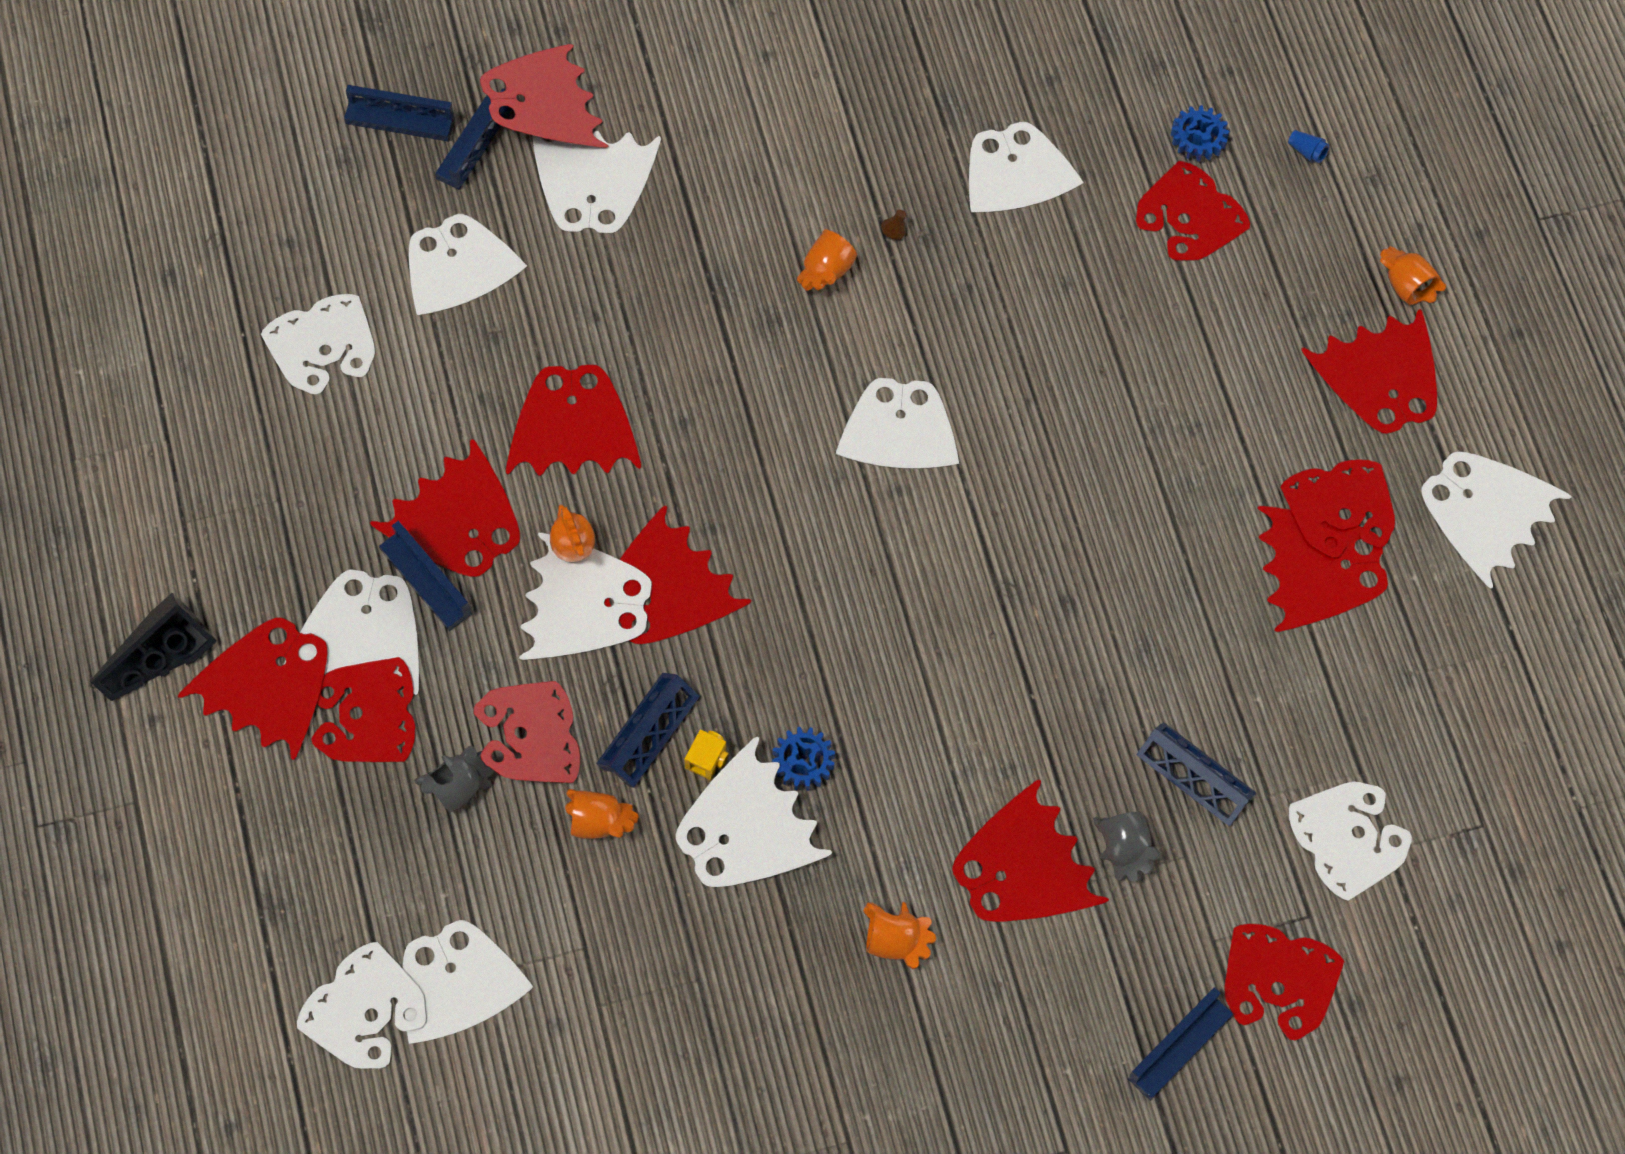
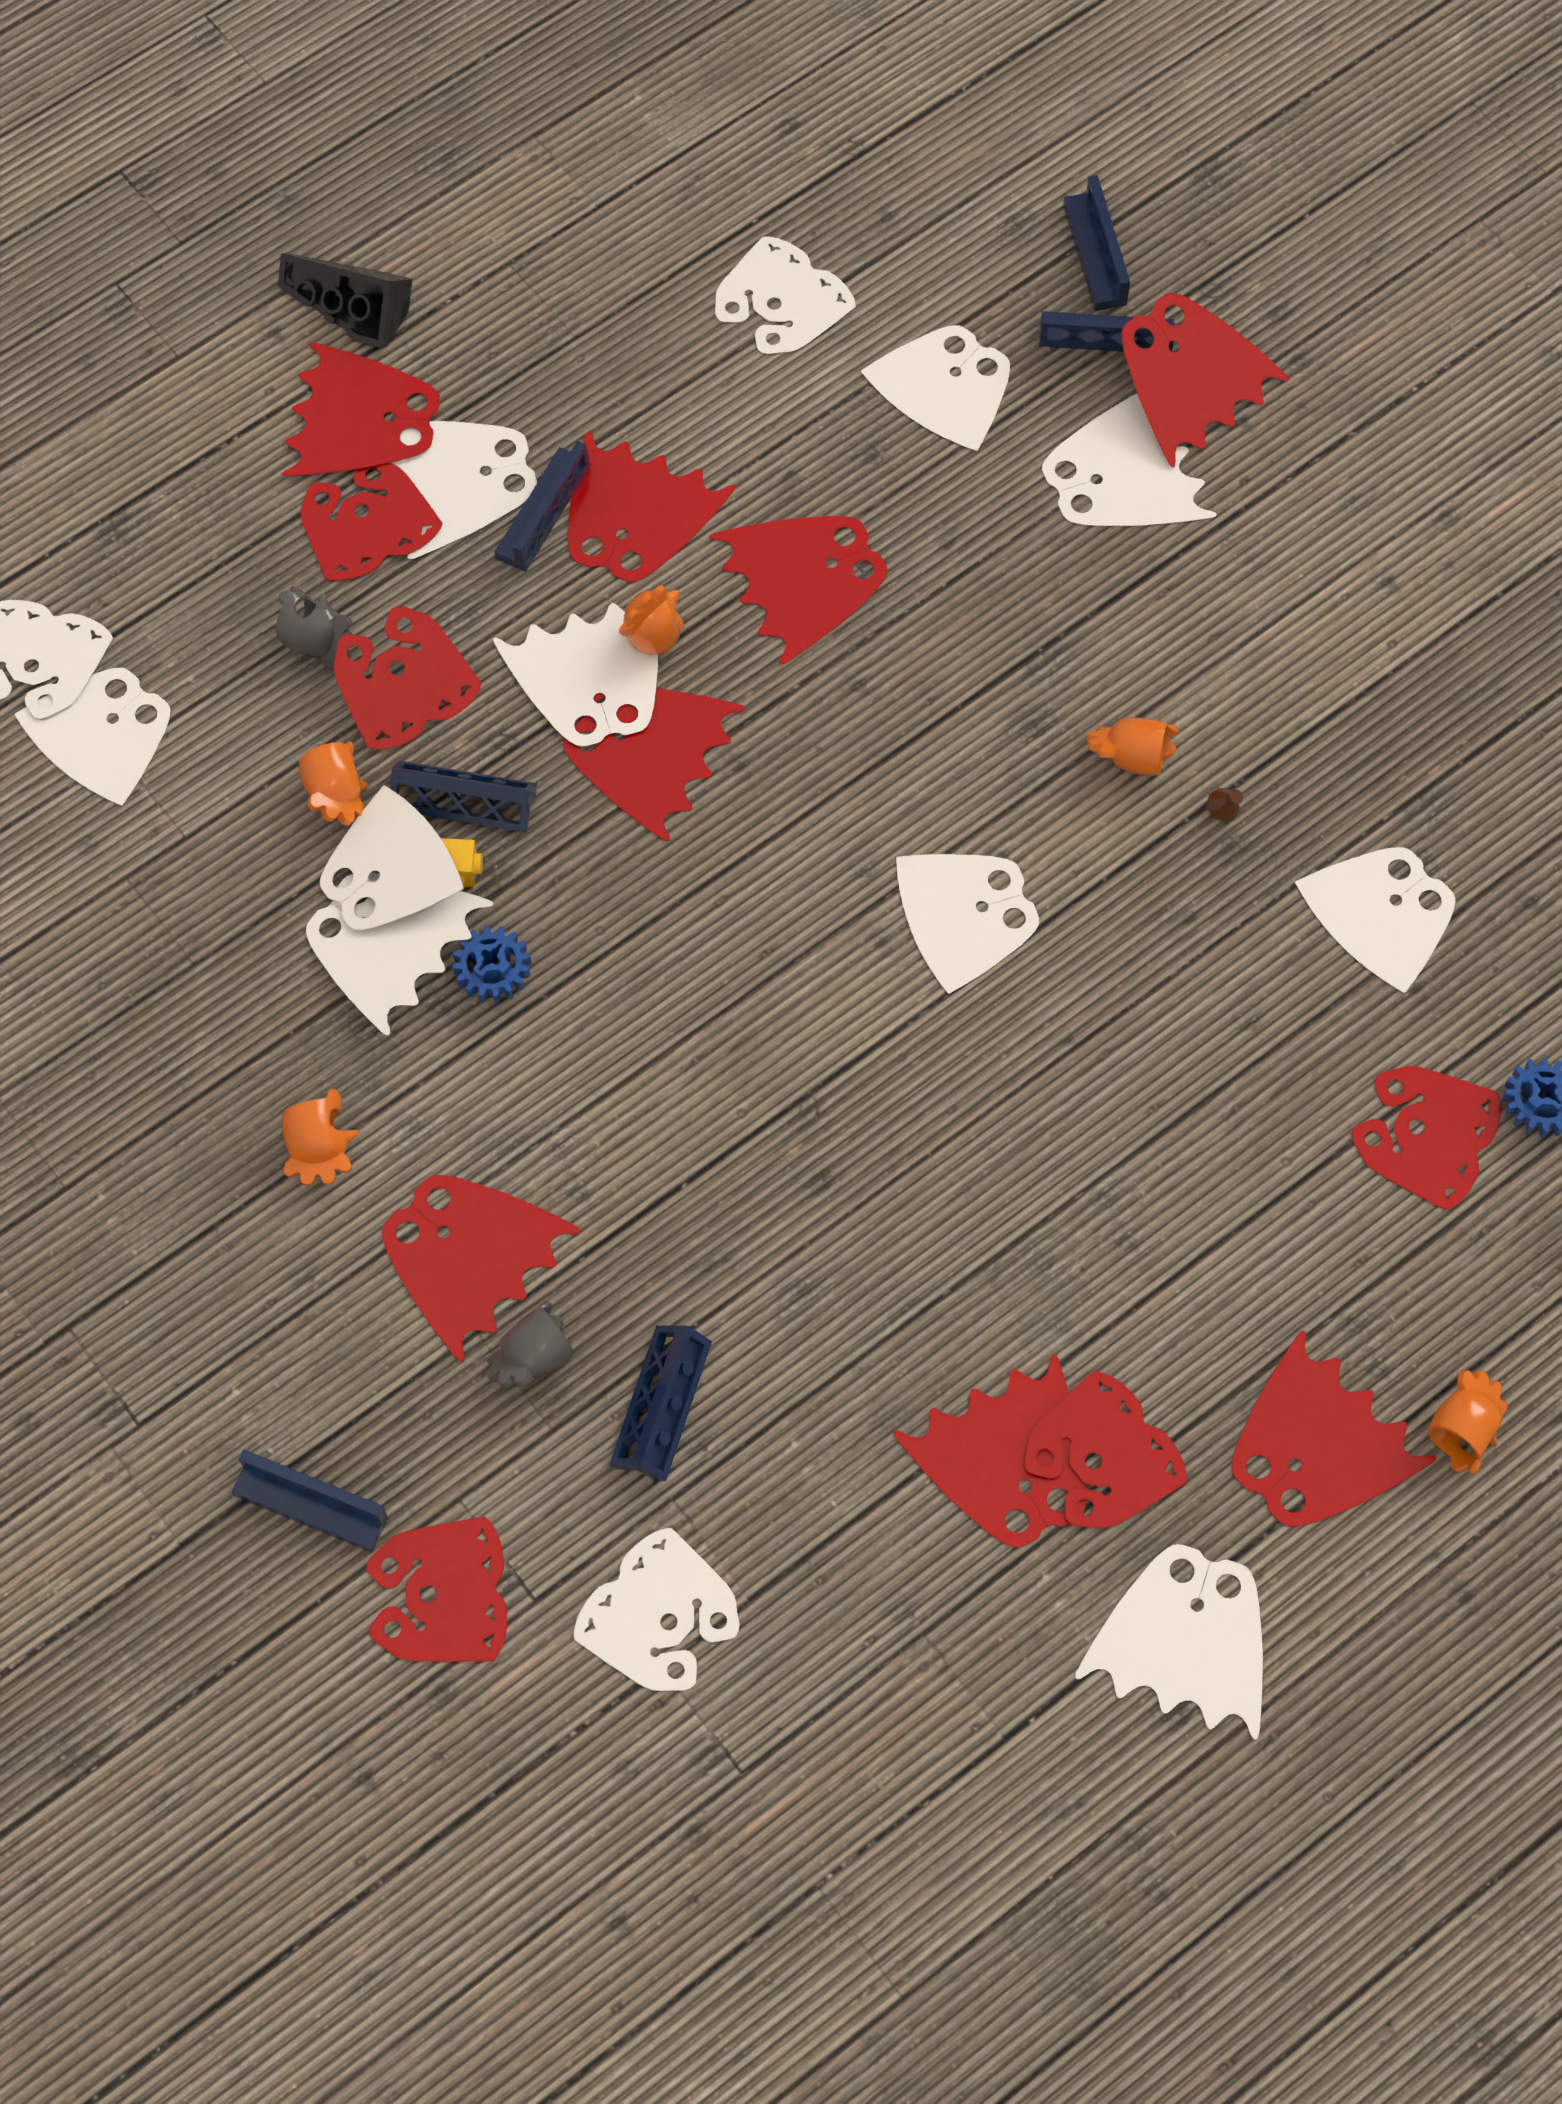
camera: 70 degrees right, 0 degrees up
(686, 782) = (404, 851): none -> white piece

